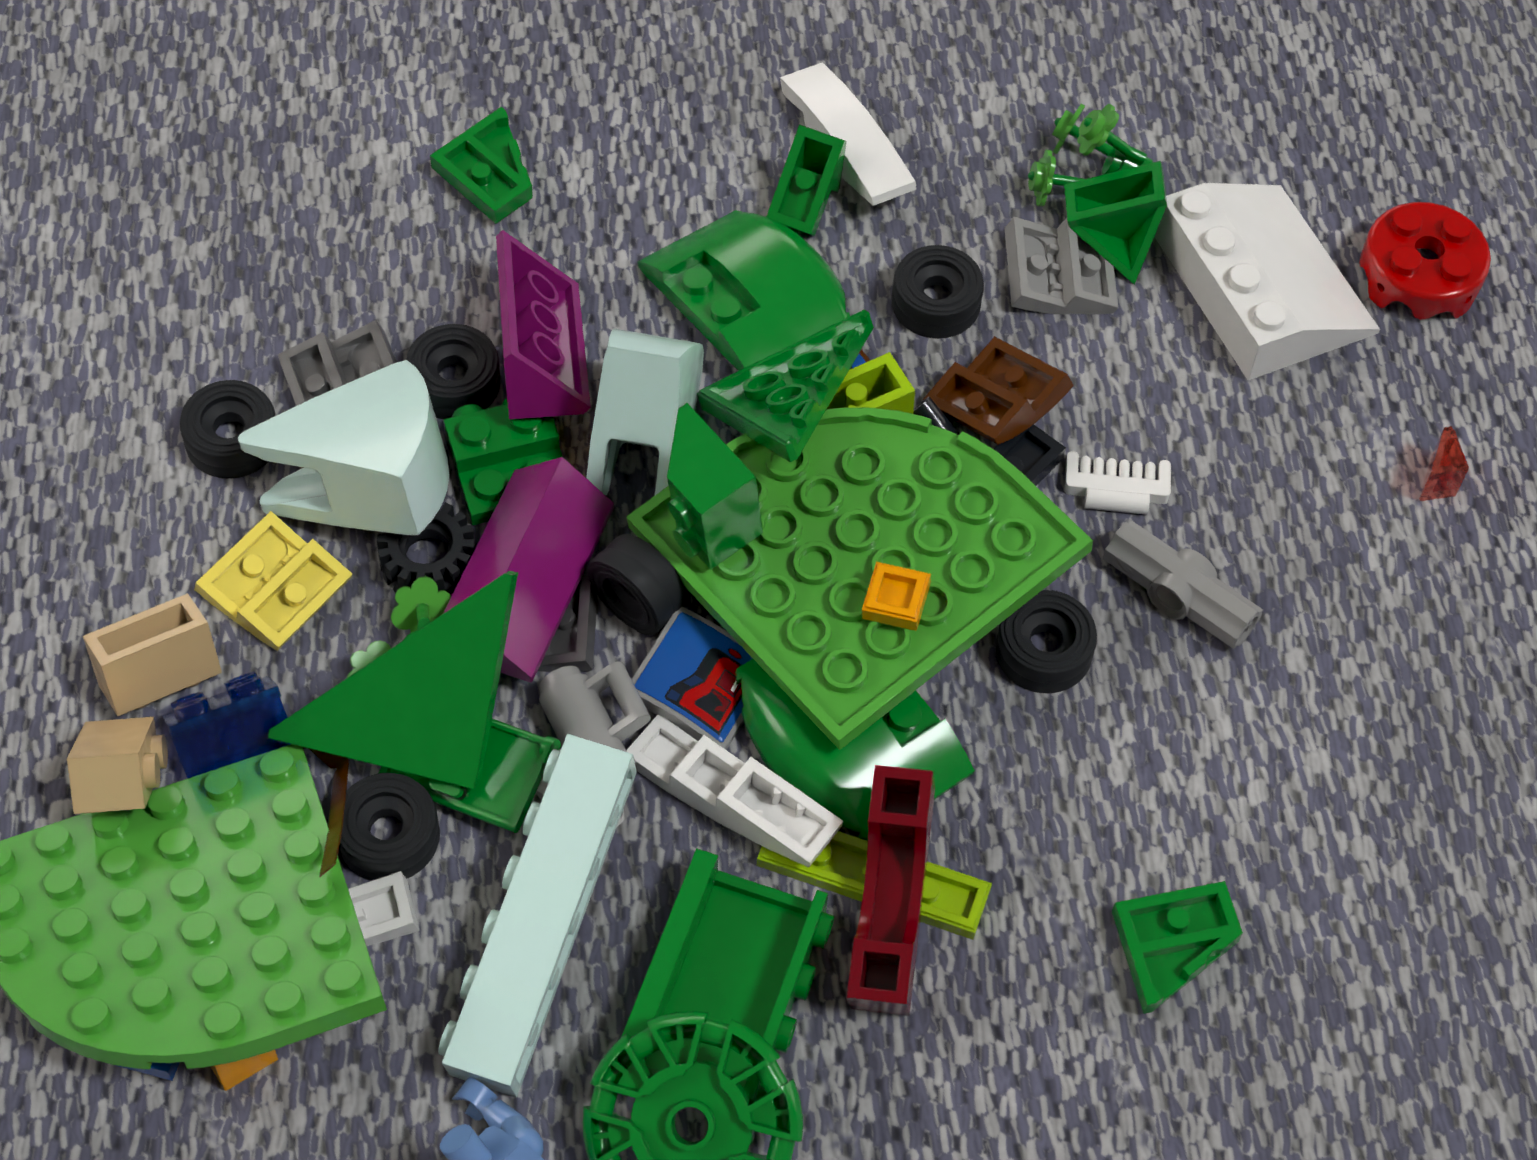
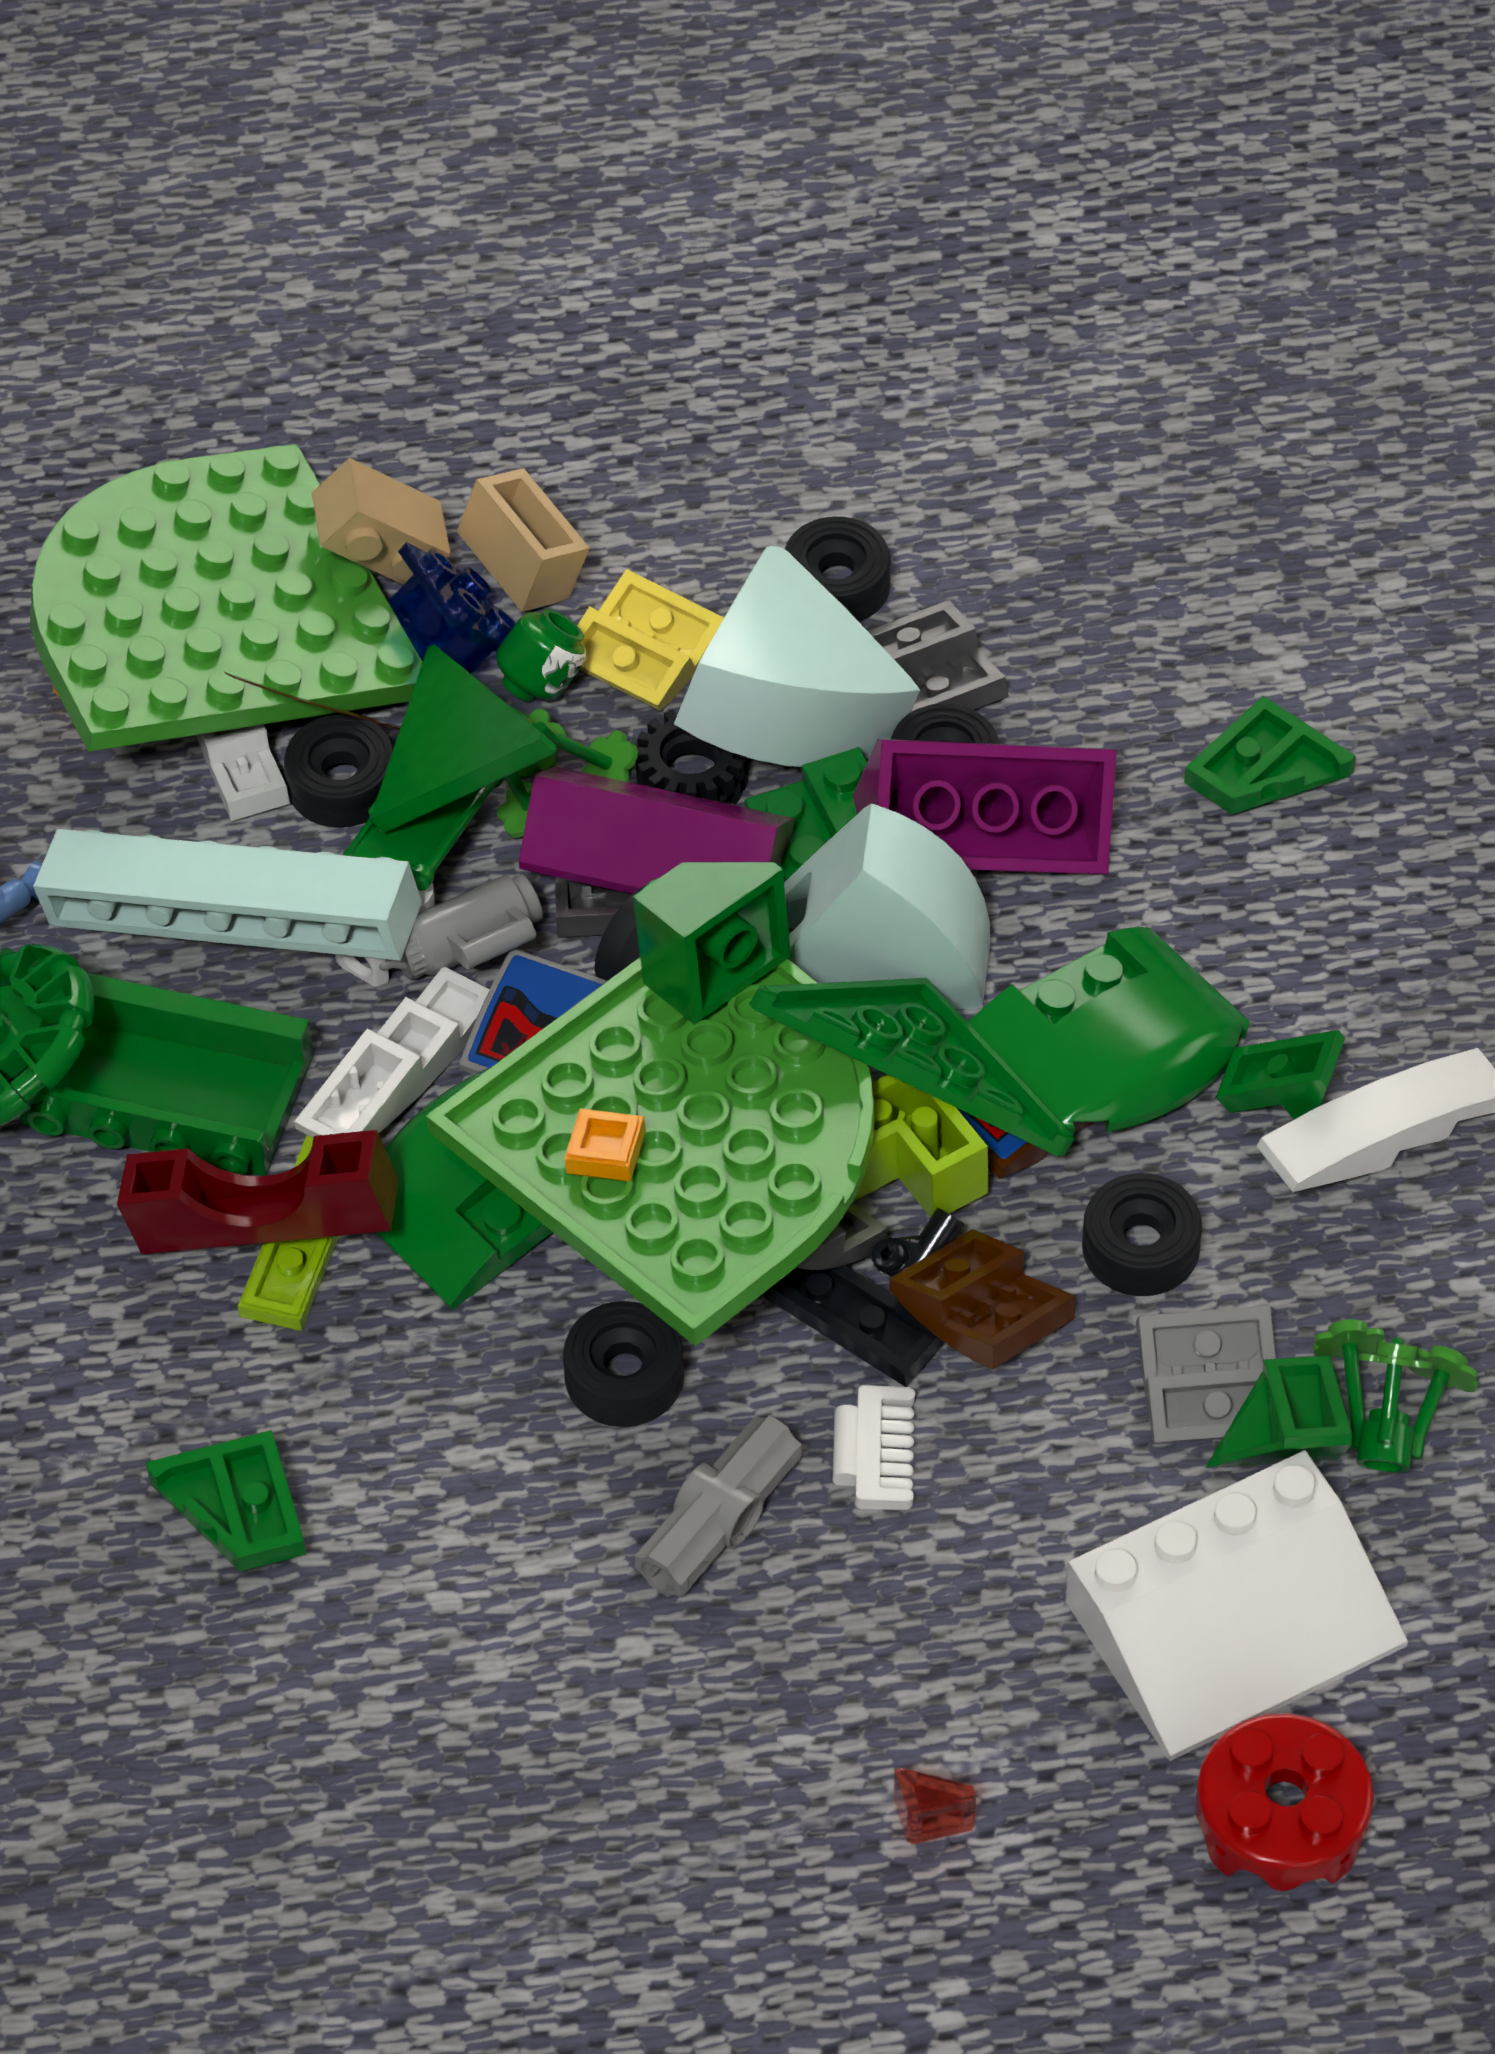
camera: 90 degrees right, 5 degrees down
(293, 649) = (541, 655): none -> green head

